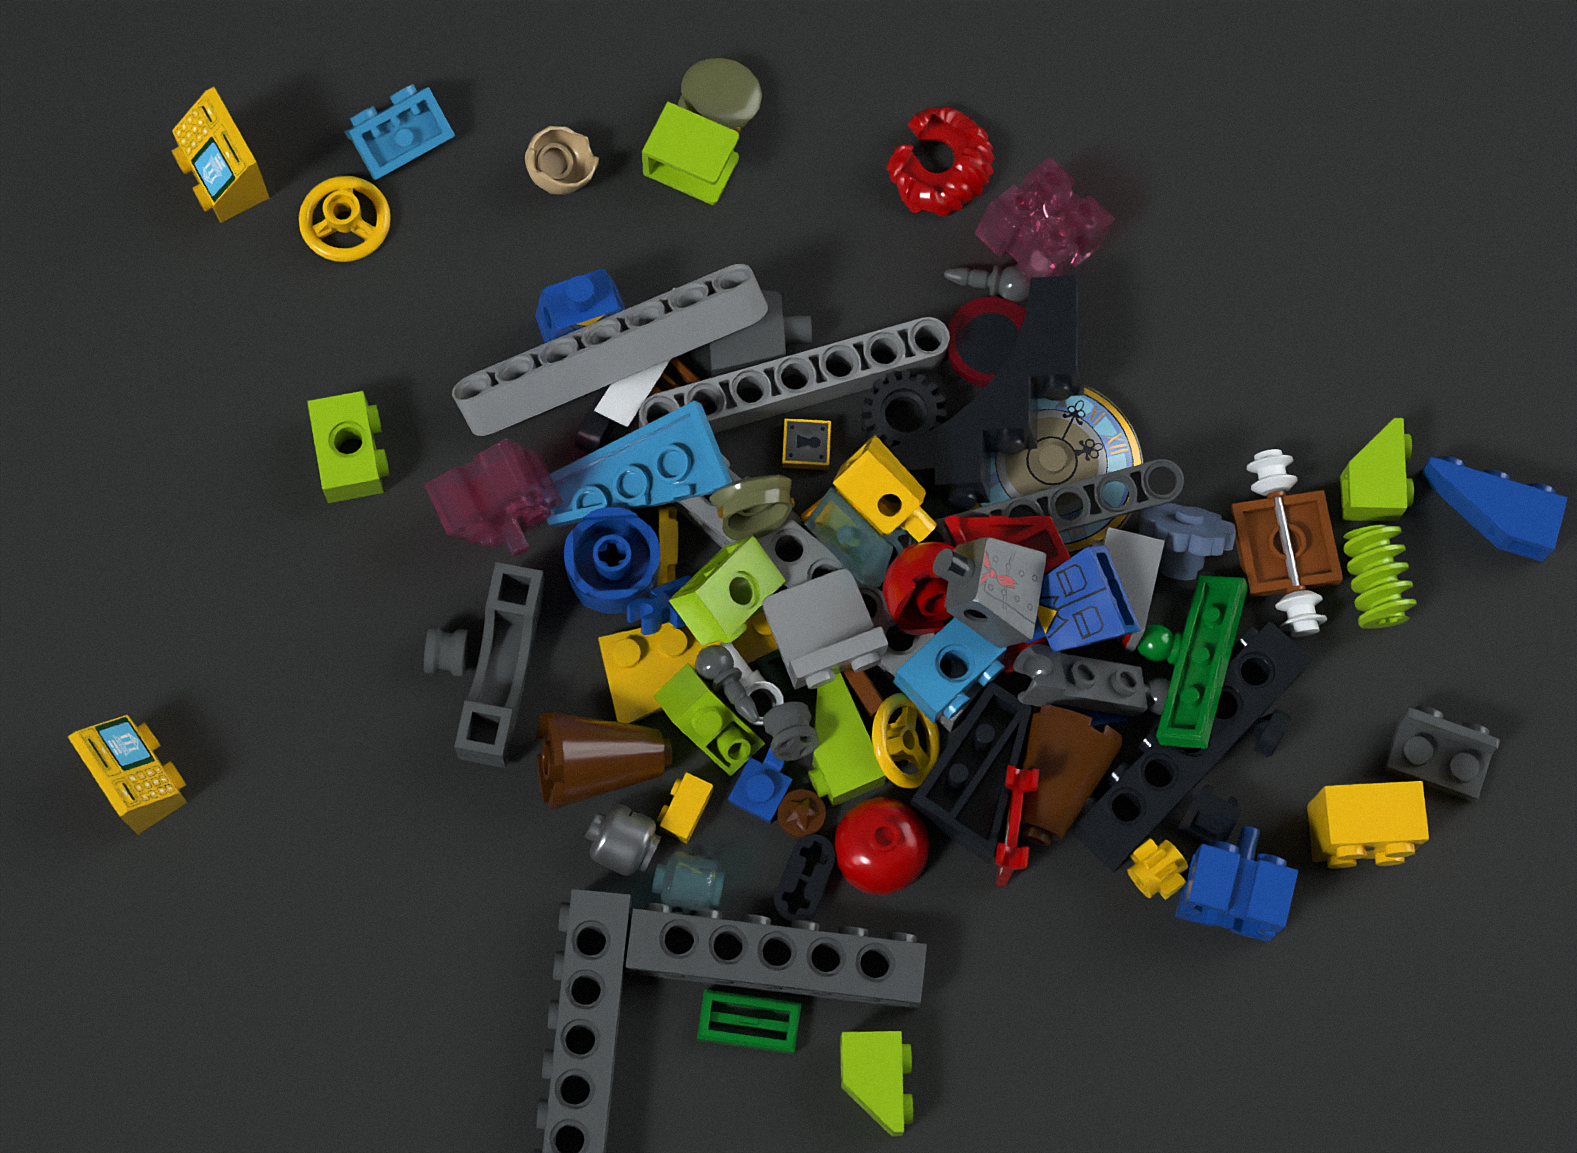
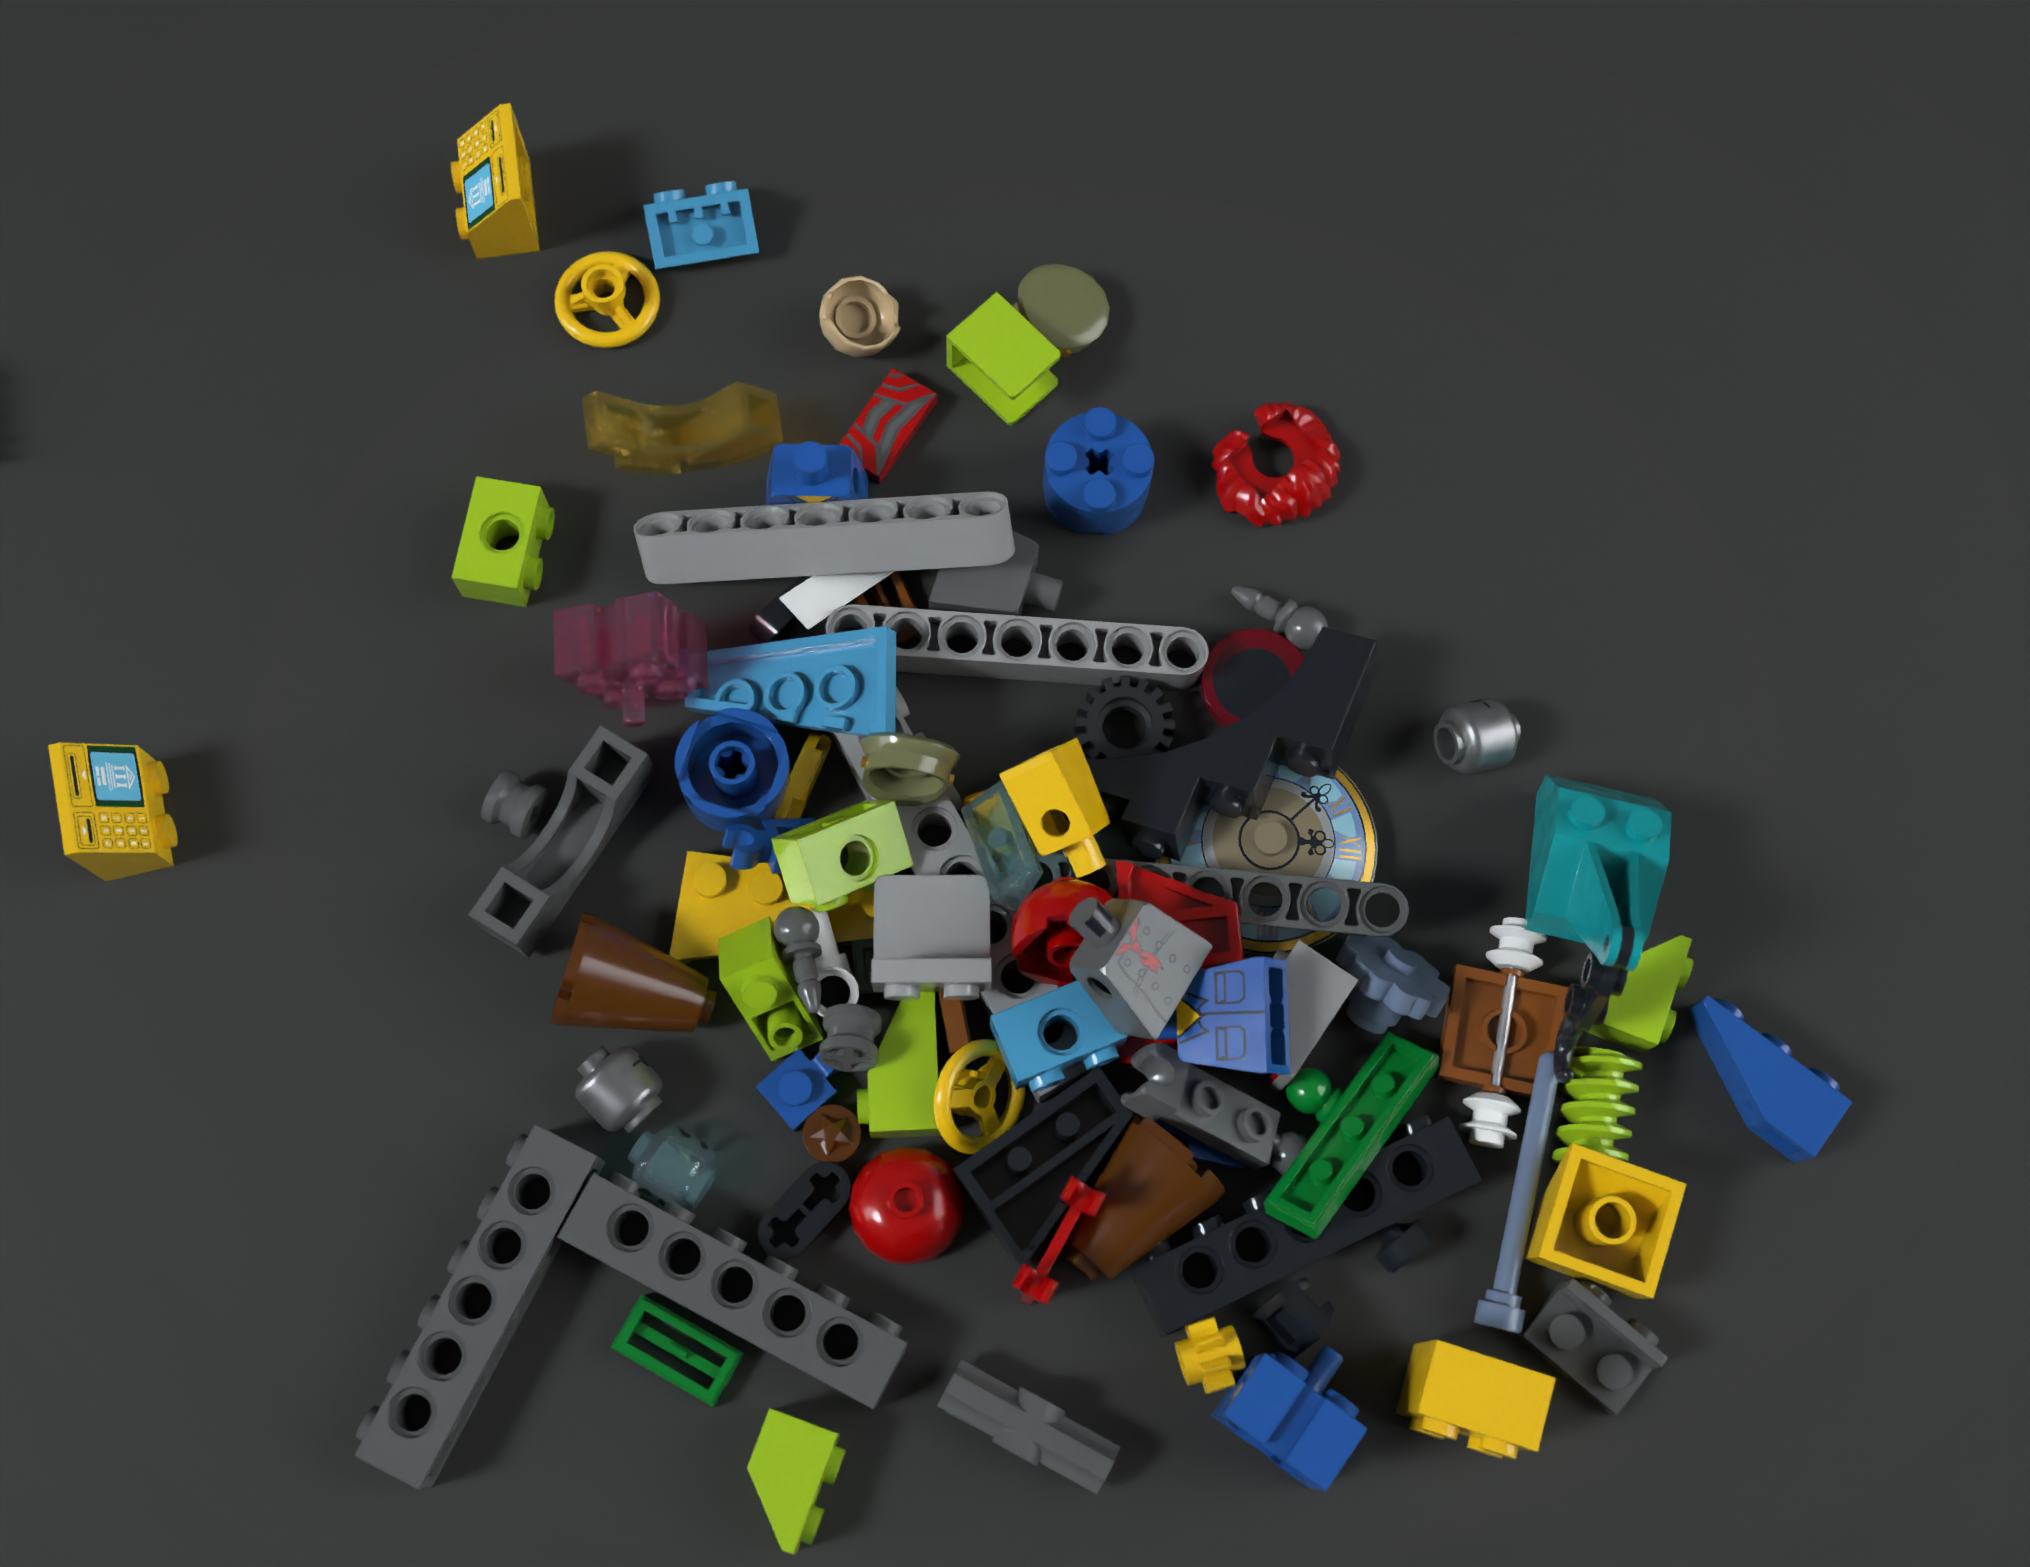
camera: 20 degrees right, 0 degrees up
(461, 307) = (684, 437): none -> clear yellow arch
(617, 237) = (889, 423): none -> tile
(686, 808) = (706, 1078): yellow piece -> none
(797, 195) = (1121, 468): none -> blue brick
(806, 444) = (1004, 721): tile -> none
(1041, 974) = (1029, 1426): none -> dark grey piece
(1044, 223) = (1364, 572): clear pink brick -> none
(1180, 321) = (1477, 736): none -> flat silver head
(1316, 401) = (1596, 883): none -> teal slope
(1362, 748) = (1501, 1305): none -> sand blue piece
(1416, 657) = (1605, 1222): none -> yellow slope

